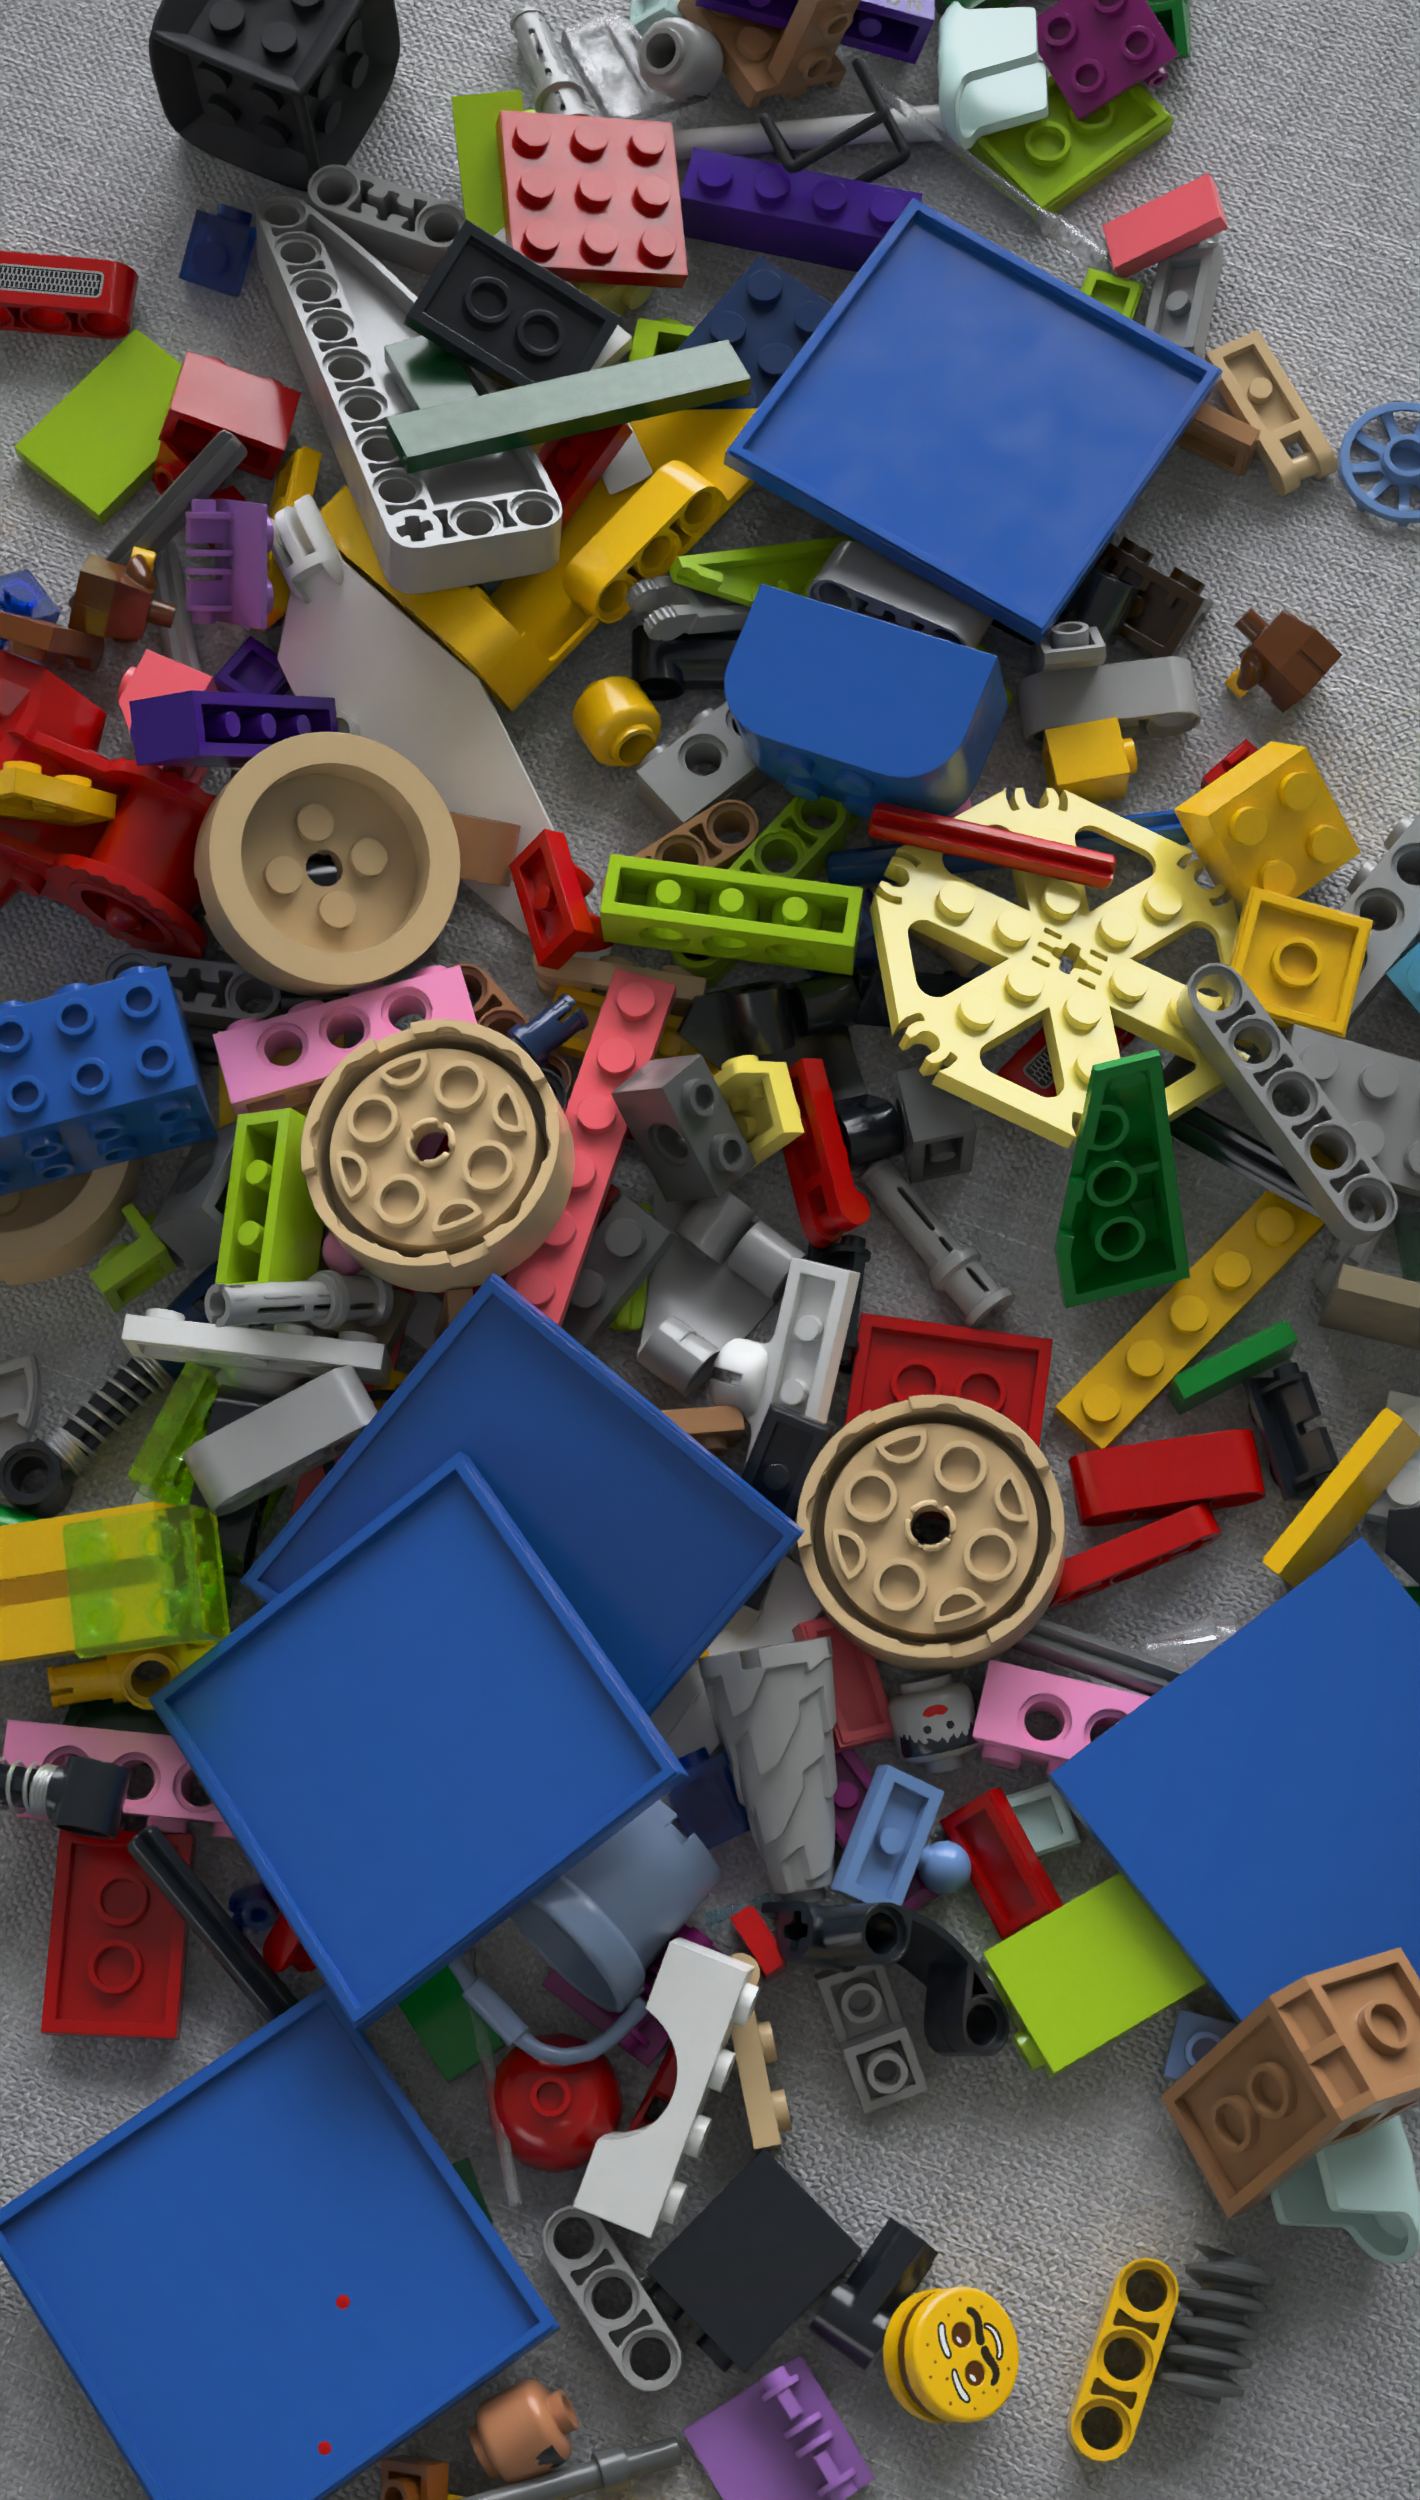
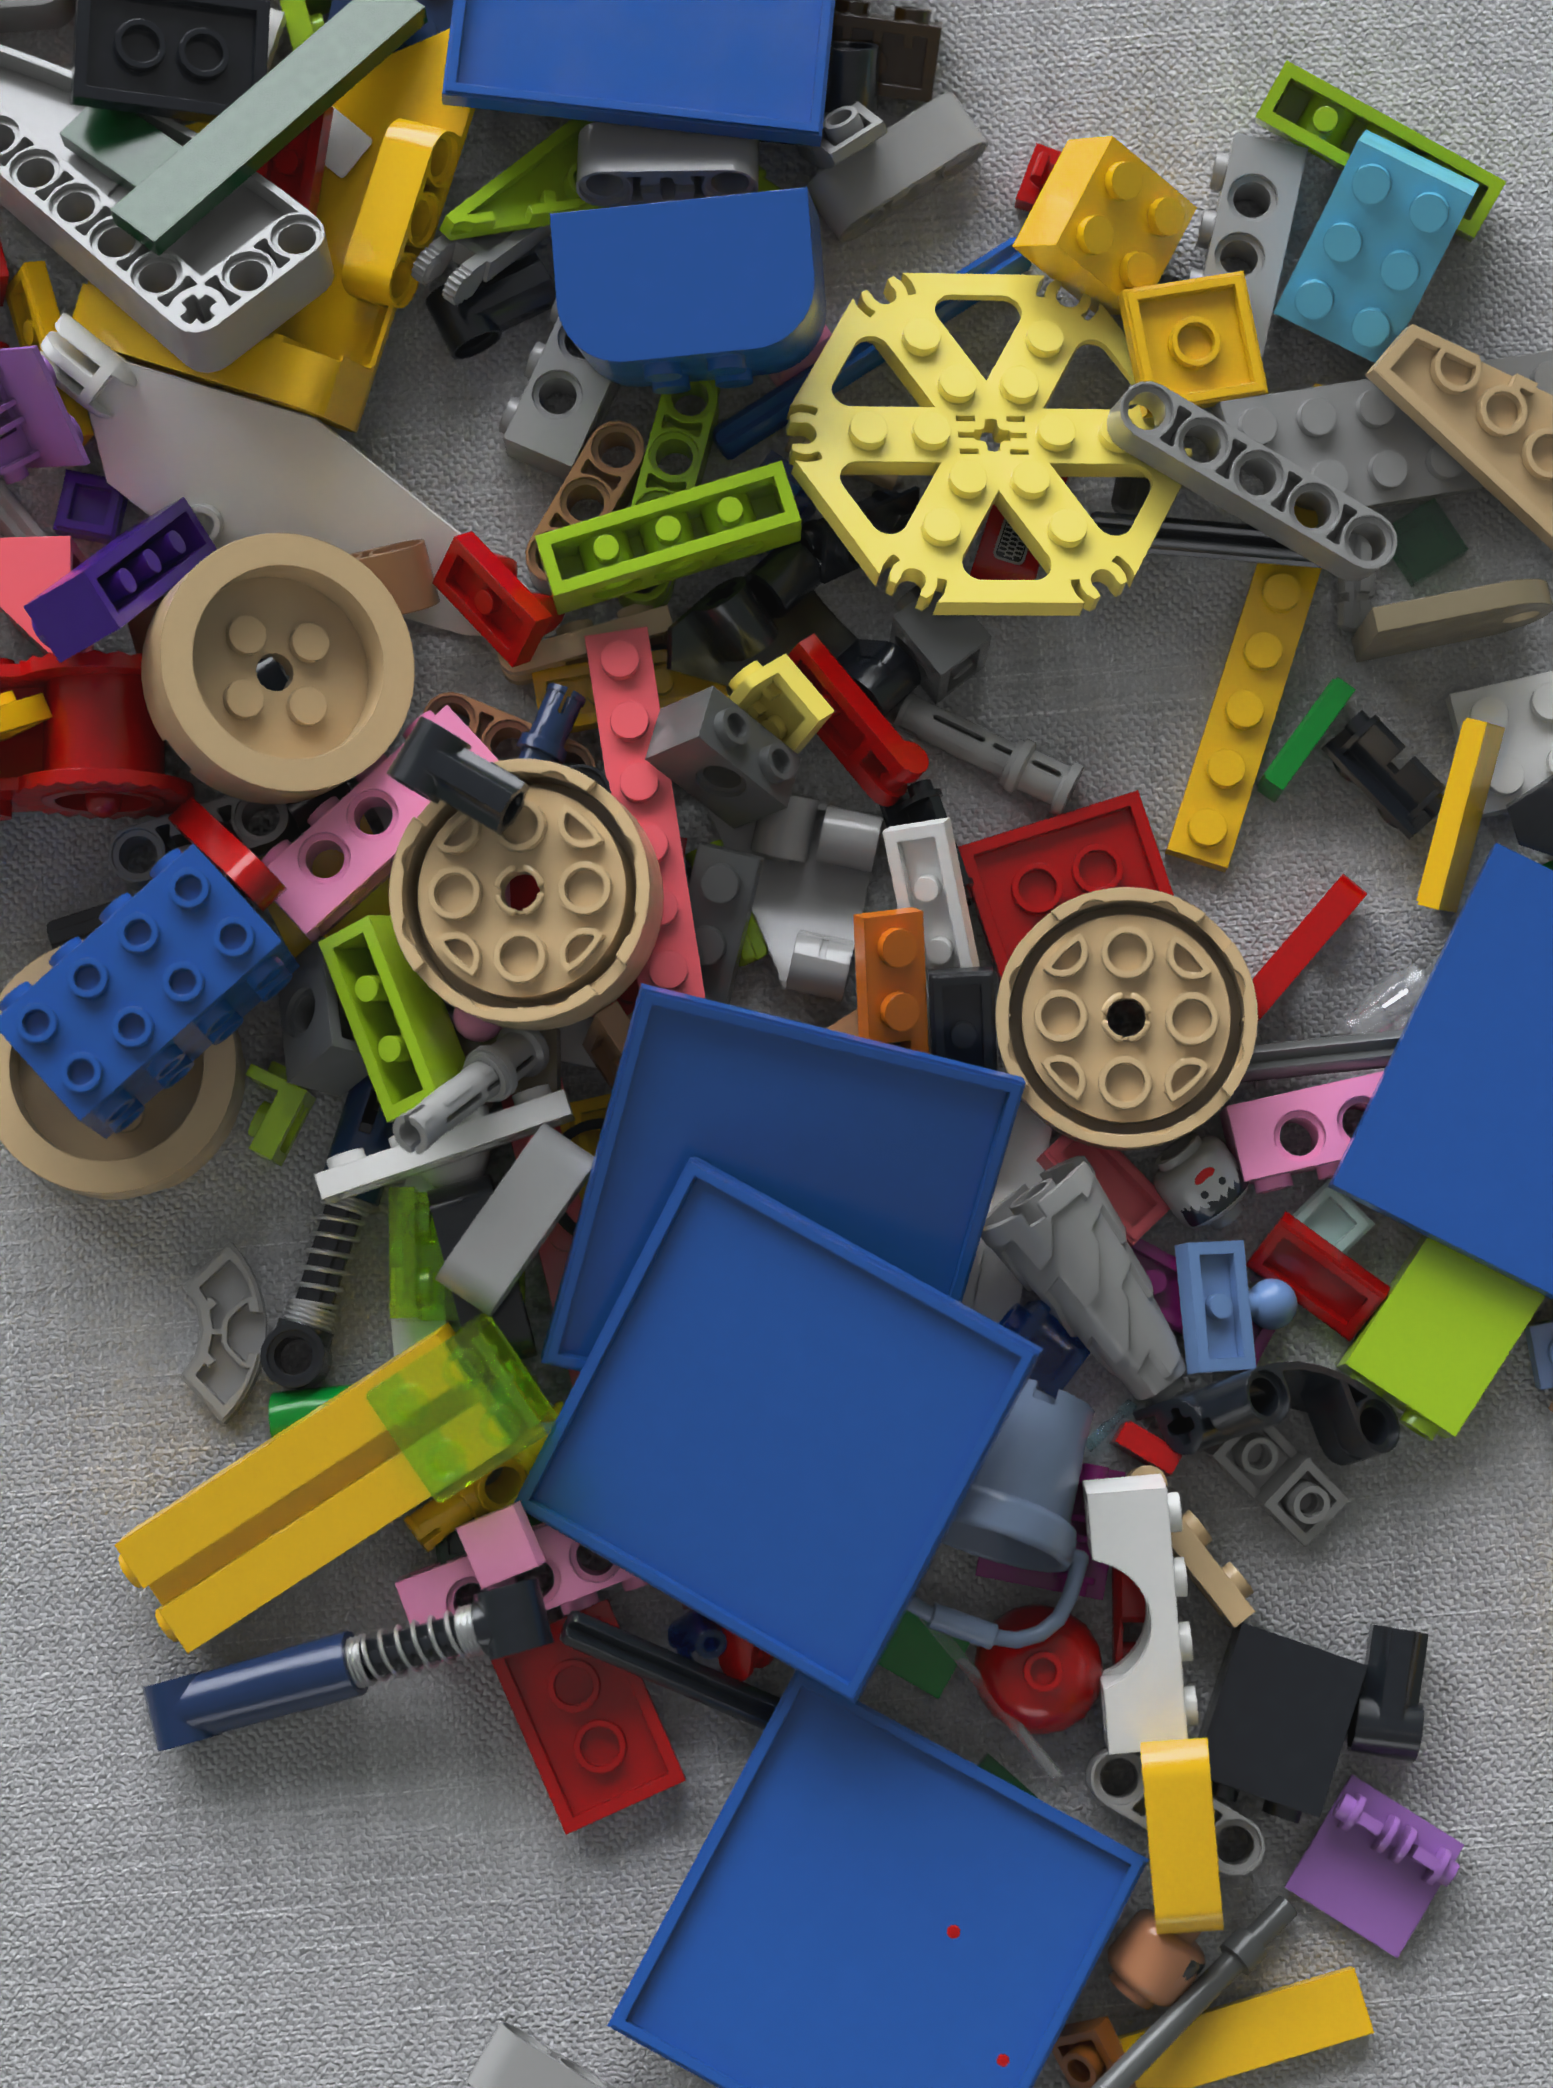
camera: 30 degrees left, 10 degrees up
(117, 1727) = (500, 1544): none -> bright pink tile
(199, 1002) = (227, 853): none -> red beam
(419, 1007) = (445, 769): none -> black piece
(600, 2317) = (1181, 1836): none -> yellow beam
(617, 721) = (455, 395): yellow head -> none
(736, 1390) = (891, 977): none -> orange plate
(951, 2355) = (1482, 1714): yellow head -> none
(991, 845) = (873, 362): red axle -> none
(1089, 760) = (906, 232): yellow brick -> none
(1122, 1191) = (1148, 630): green wedge -> none
(1166, 1477) = (1295, 866): red beam -> none
(1281, 658) = (1035, 51): reddish brown piece -> none

